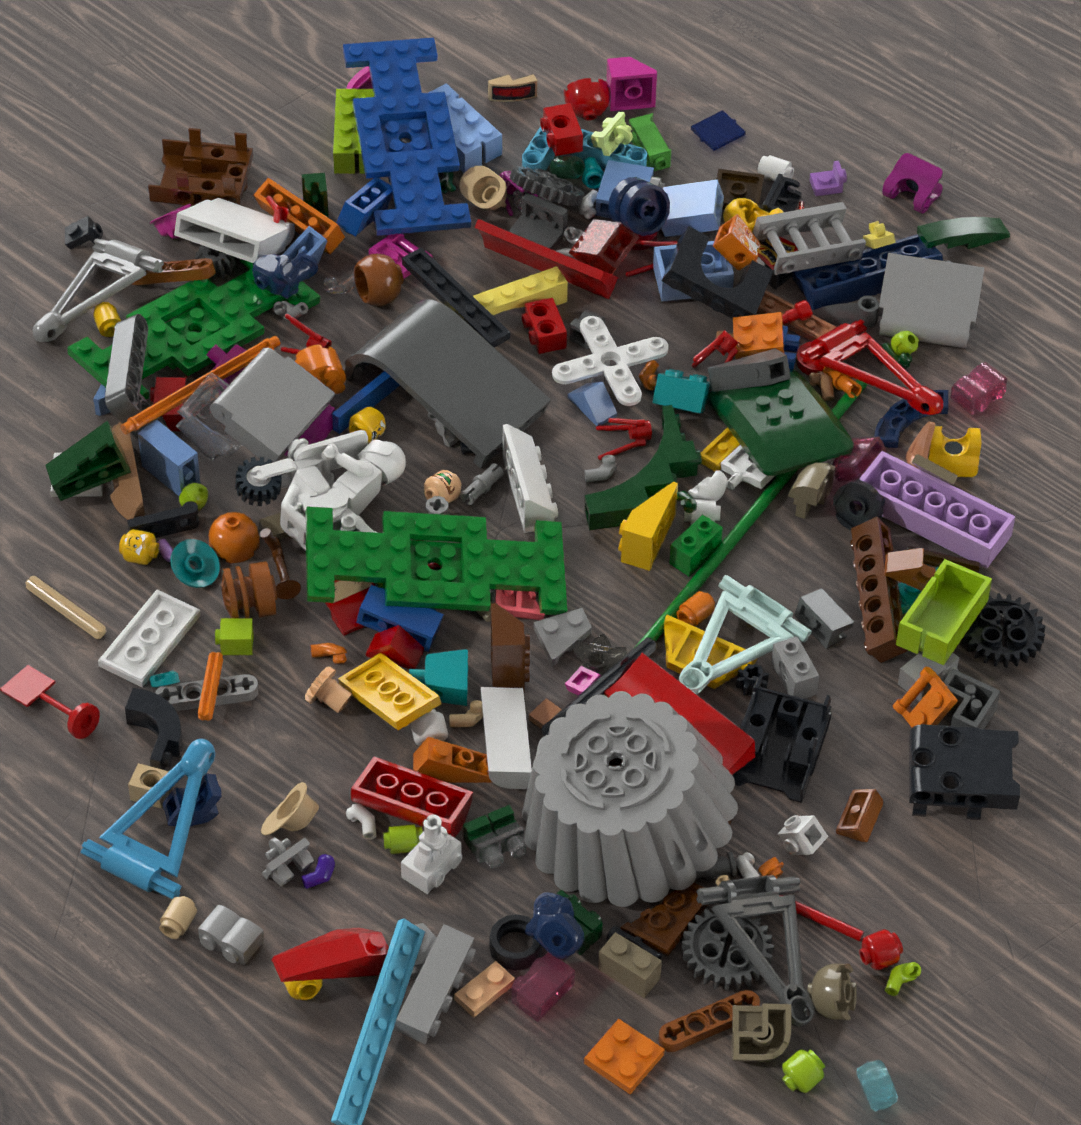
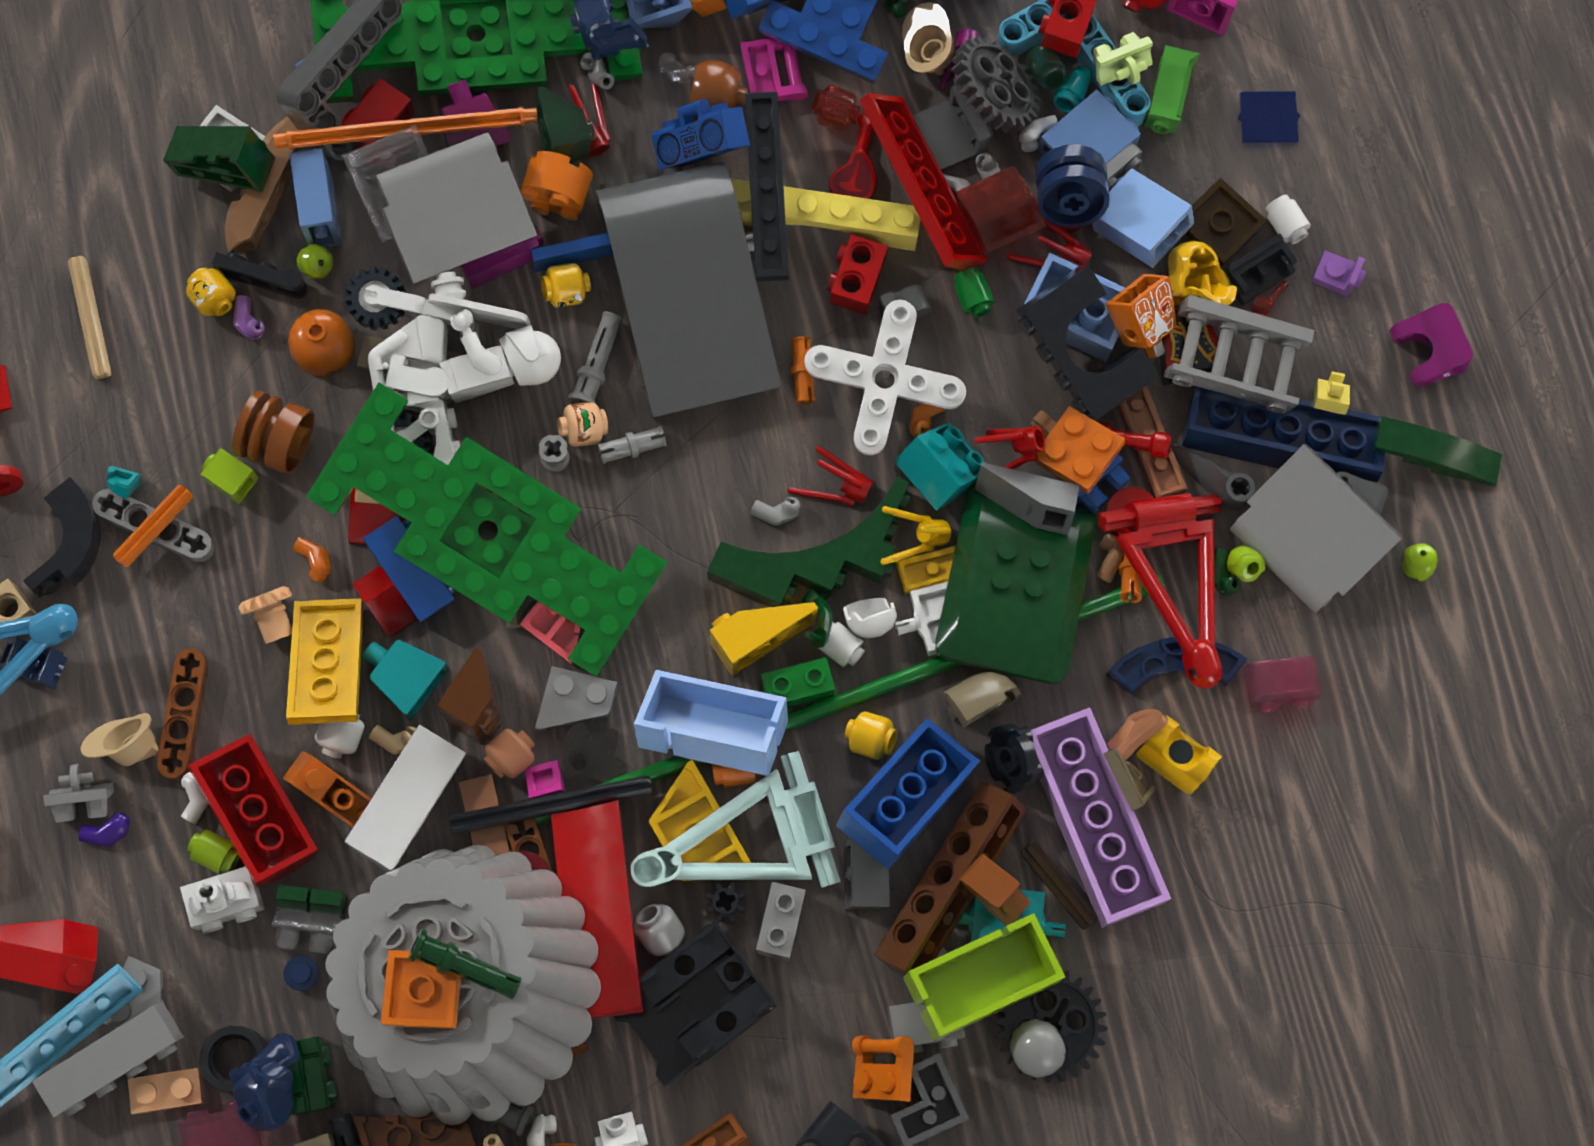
camera: 30 degrees right, 25 degrees up
(149, 638) = (147, 413): white tile -> none
(201, 557) = (254, 369): teal dish -> none
(286, 588) = (355, 384): reddish brown piece -> none
(295, 335) = (562, 125): none -> clear green slope
(316, 781) = (187, 714): none -> dark orange beam
(394, 297) = (713, 134): none -> blue piece
(413, 434) = (592, 375): none -> light grey pin
(456, 252) = (835, 108): none -> clear red head
(495, 275) = (858, 175): none -> piece
(517, 873) = (301, 973): none -> dark blue plate
(527, 478) = (678, 477): white slope -> none
(549, 678) = (509, 753): none -> nougat head
(554, 391) = (802, 379): none -> orange pin
(594, 402) = (835, 413): medium blue slope -> none
(623, 298) = (973, 292): none -> green brick
(624, 765) = (418, 994): none -> orange plate
(629, 729) = (448, 959): none -> dark green pin
(663, 583) = (711, 722): none -> light blue piece
(705, 426) = (929, 532): none -> yellow plant
(728, 707) = (659, 929): none -> light grey head
(763, 546) = (871, 735): none -> yellow head
(814, 554) = (907, 793): none -> blue brick
(857, 462) = (1073, 694): clear pink brick -> none
(1002, 289) = (1419, 561): none -> lime piece
(1007, 636) = (1037, 1048): none -> light grey hair

